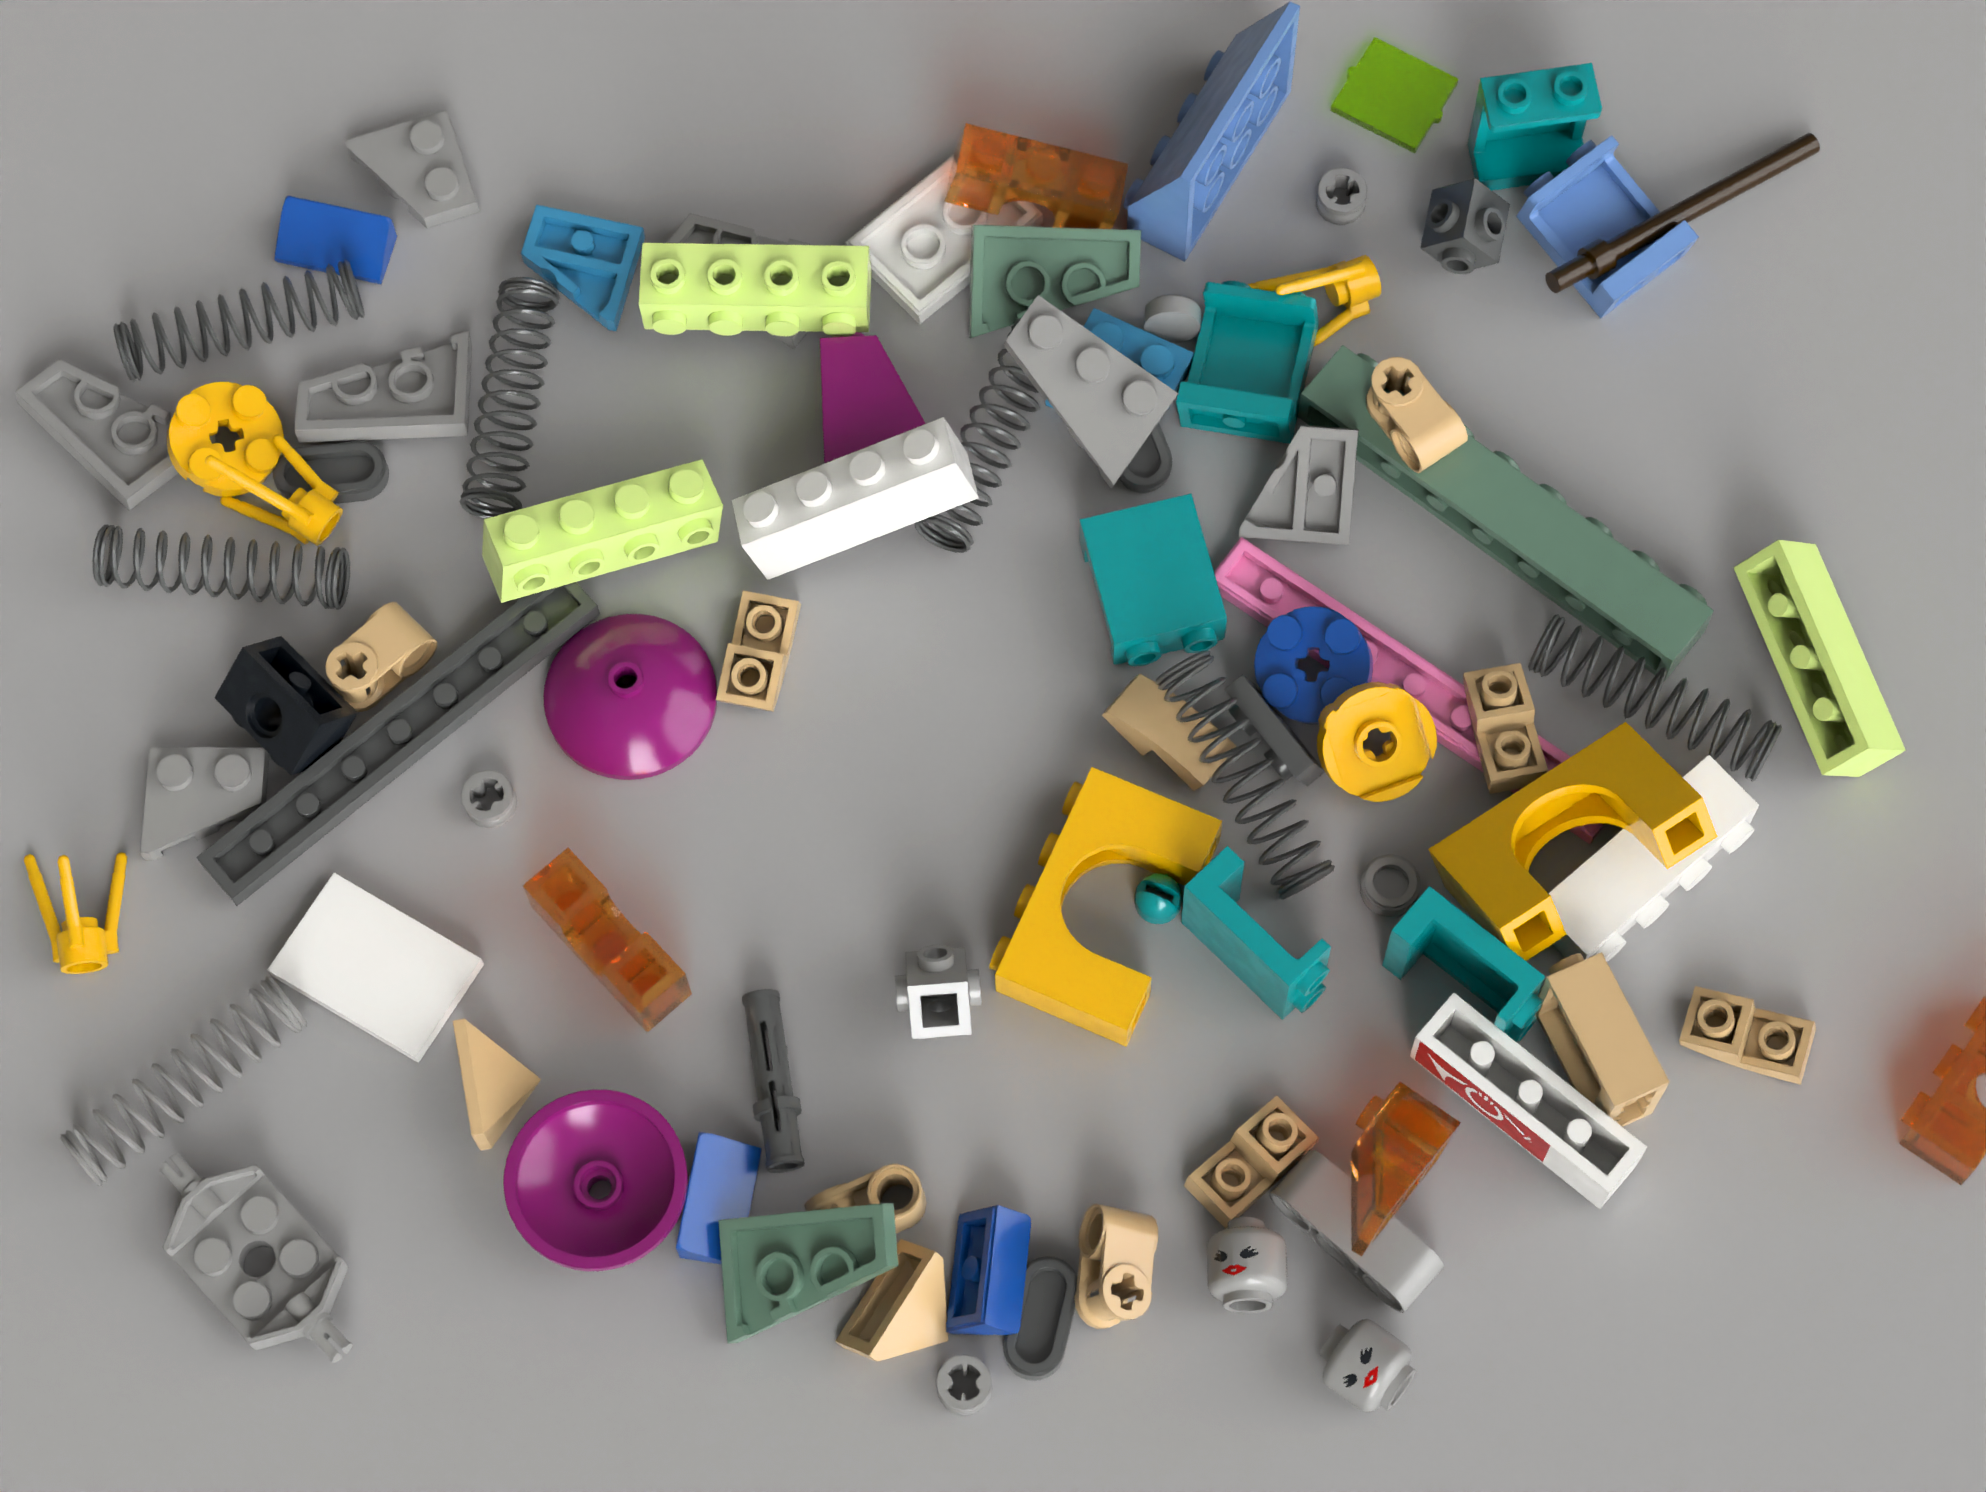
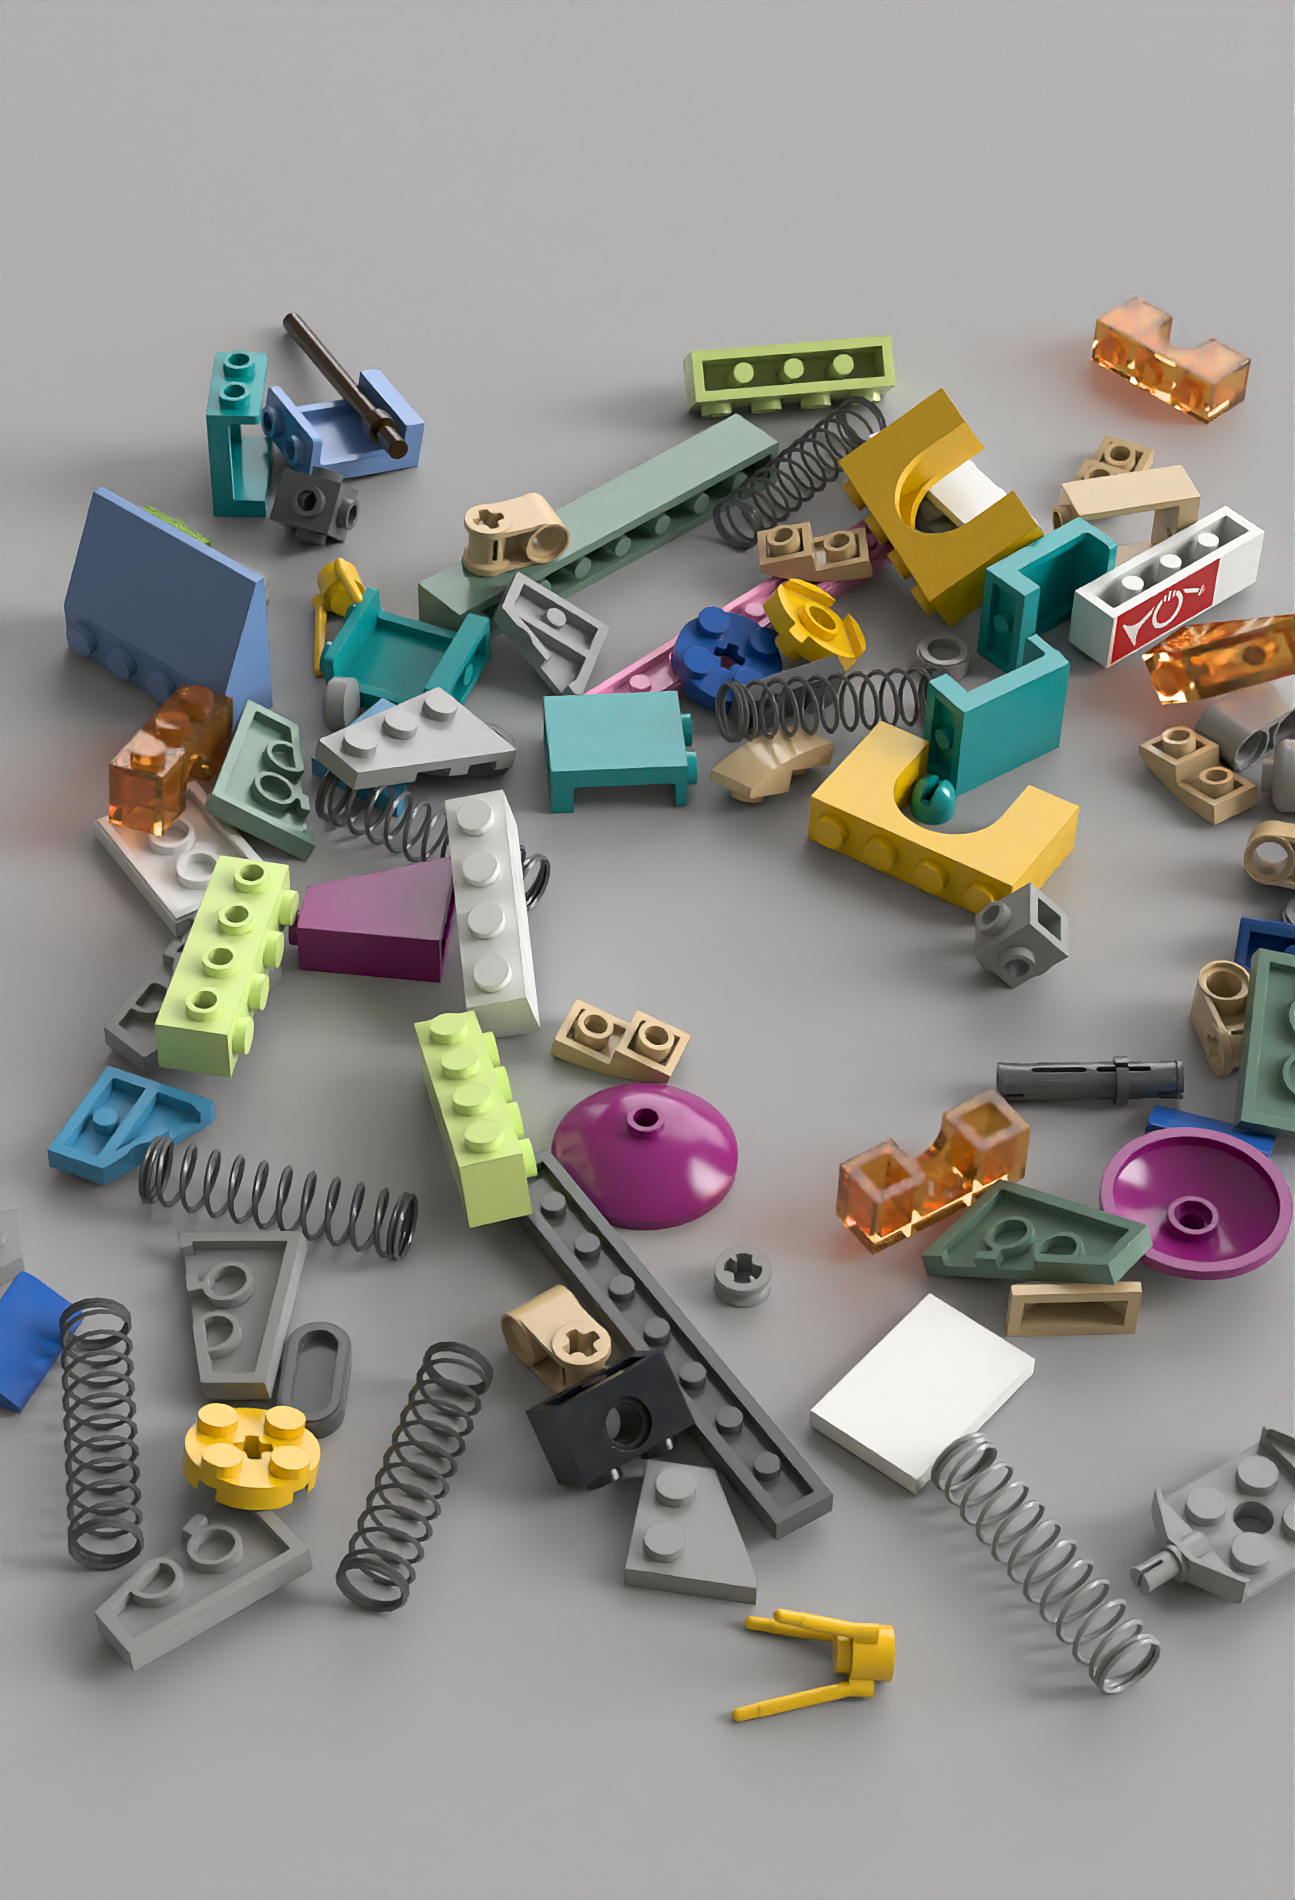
camera: 85 degrees left, 25 degrees down
(307, 514) = (364, 1388): yellow plant -> none
(540, 1041) = (1037, 1238): none -> sand green wing

